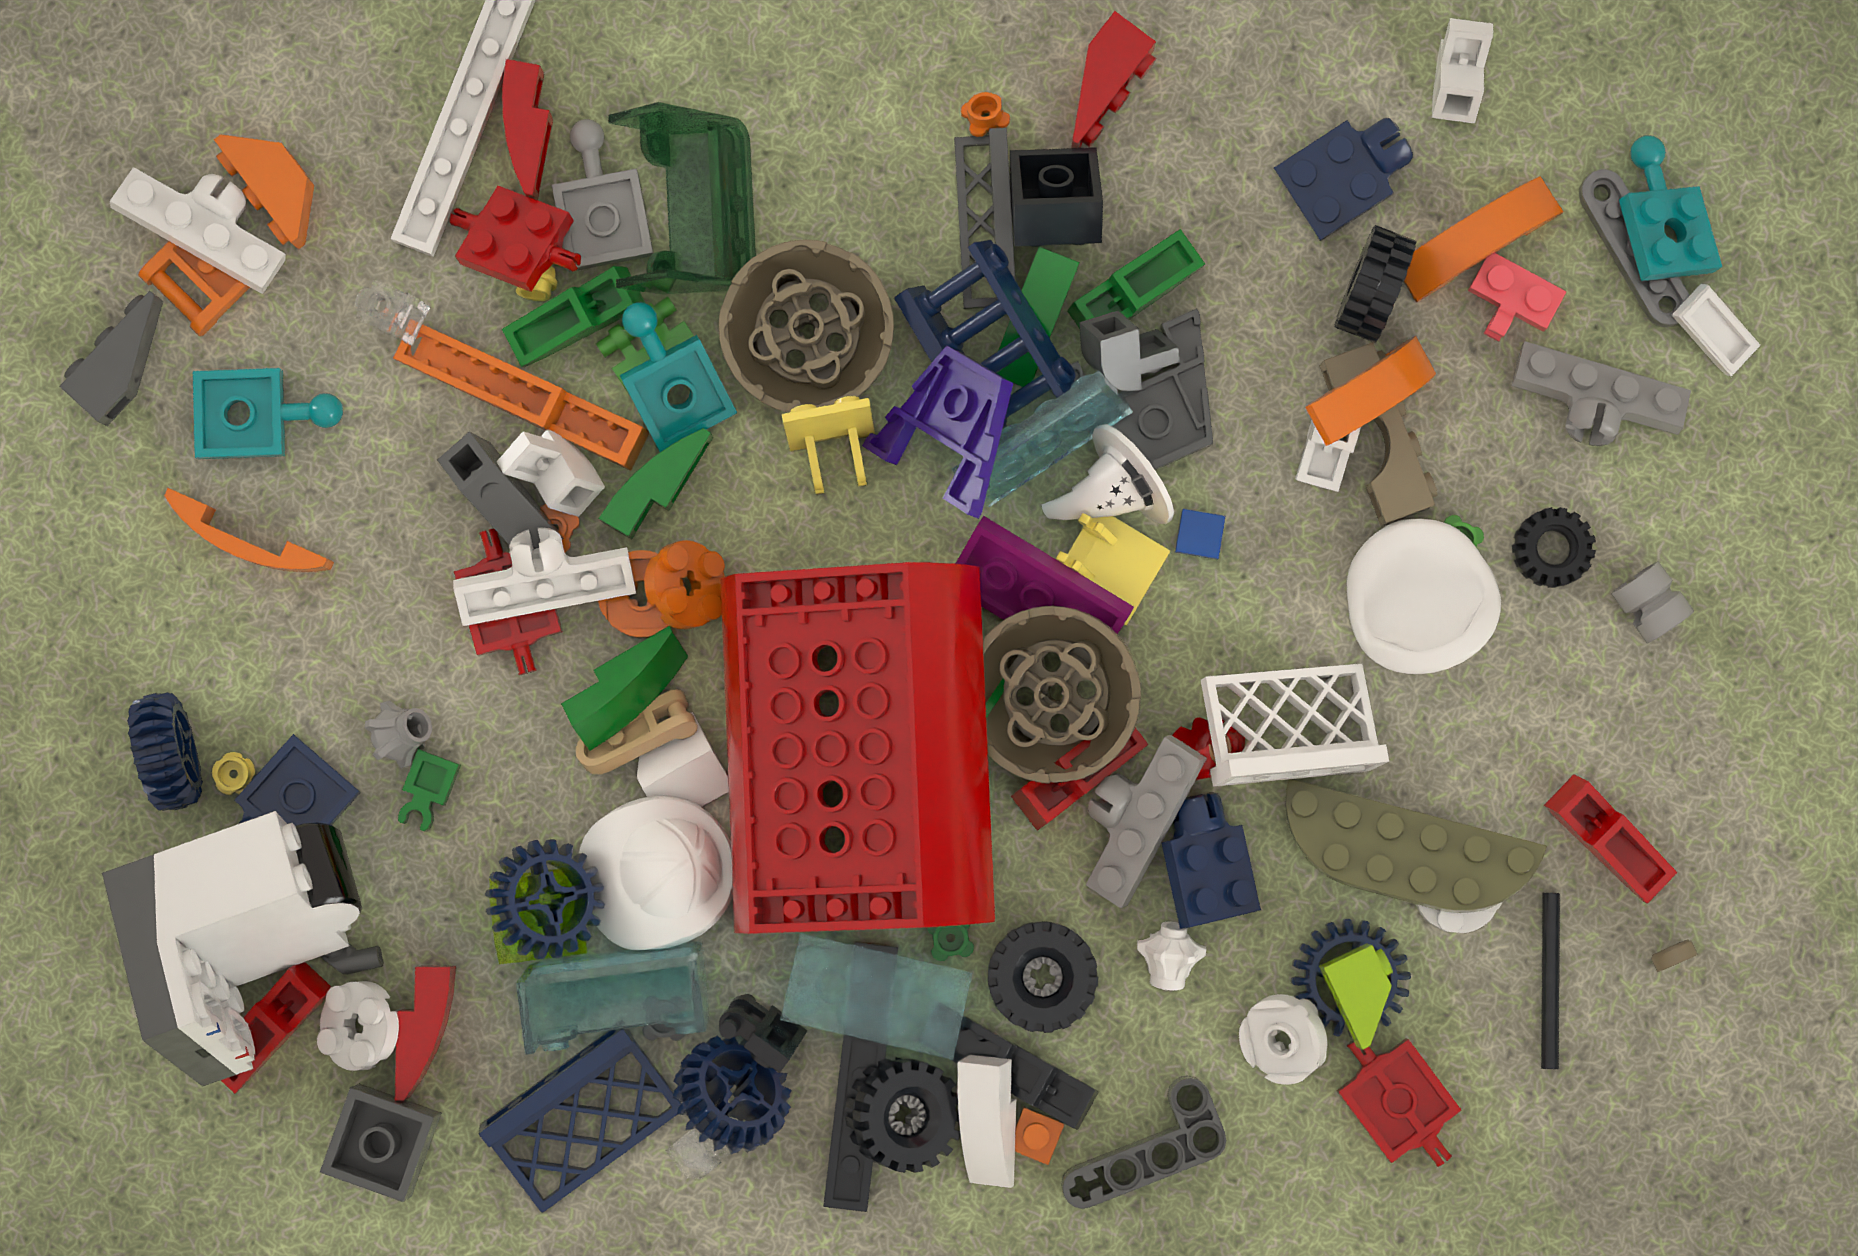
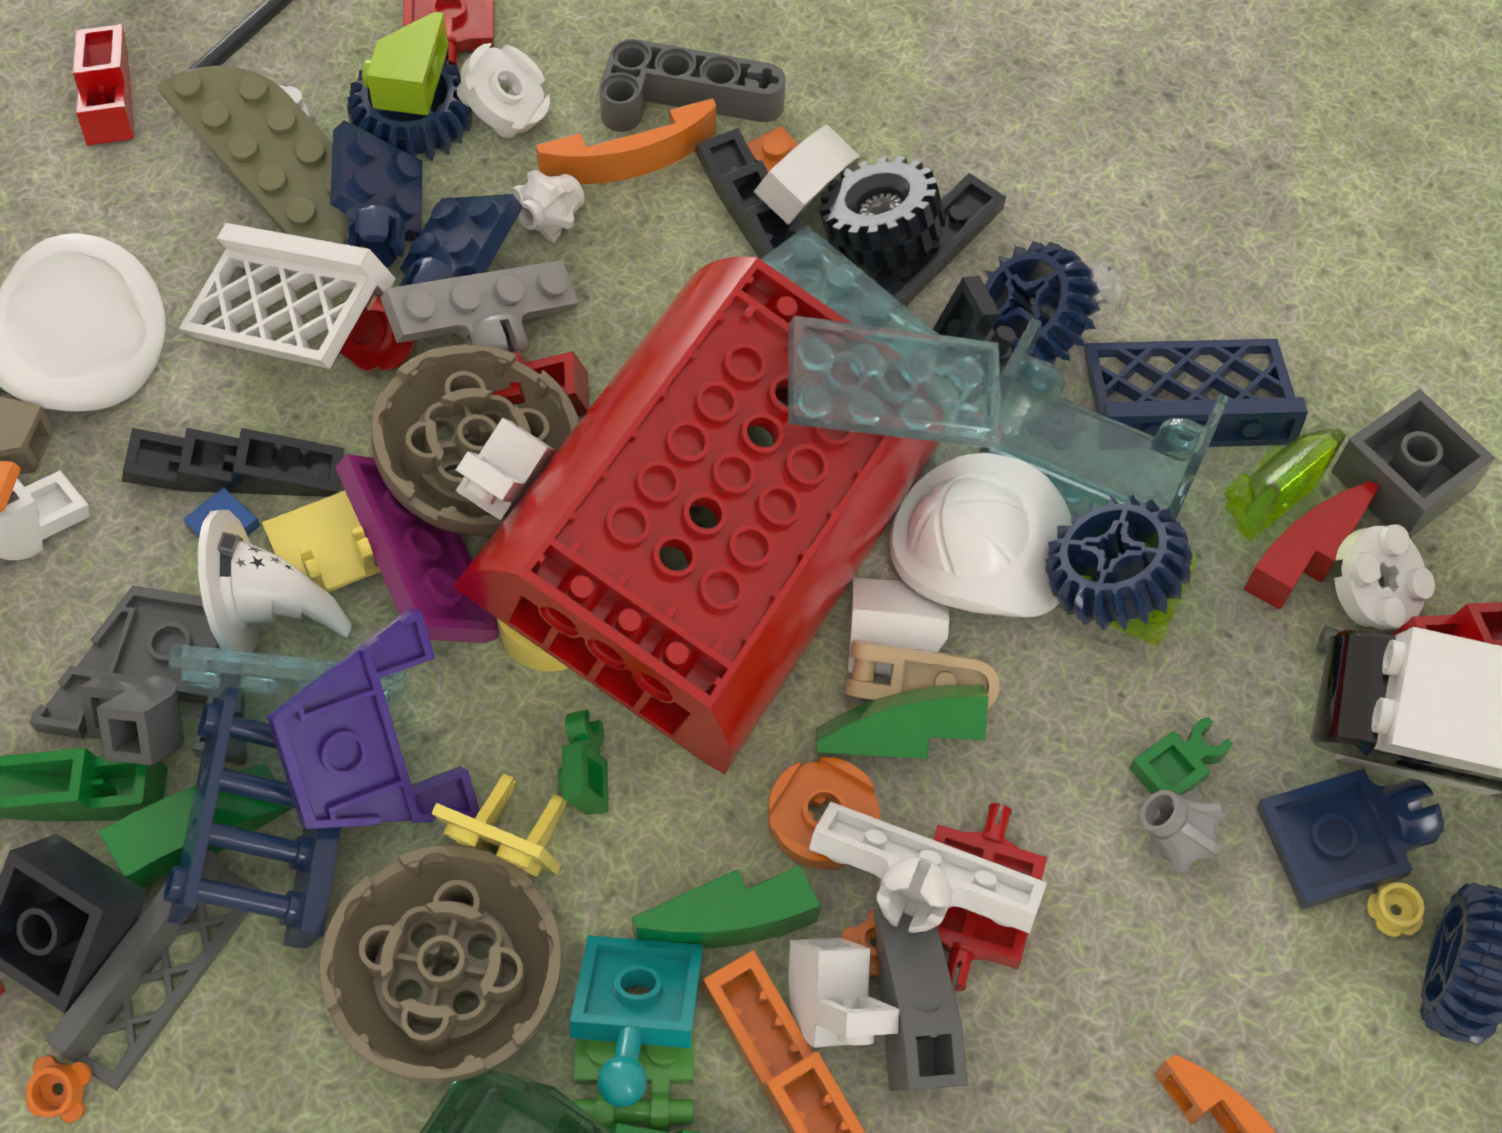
camera: 150 degrees left, 25 degrees down
(469, 1060) = (1281, 481): none -> clear neon green slope
(704, 572) = (744, 788): orange plate -> none
(765, 898) = (893, 382): none -> clear light blue plate
(815, 518) = (583, 770): none -> green plate
(1002, 667) = (503, 468): none -> white brick
(1056, 1003) = (666, 229): black bush -> none
(1116, 1102) = (631, 154): none -> orange slope
(1227, 581) = (241, 465): none -> black slope
(1302, 868) = (376, 191): none -> dark blue plate

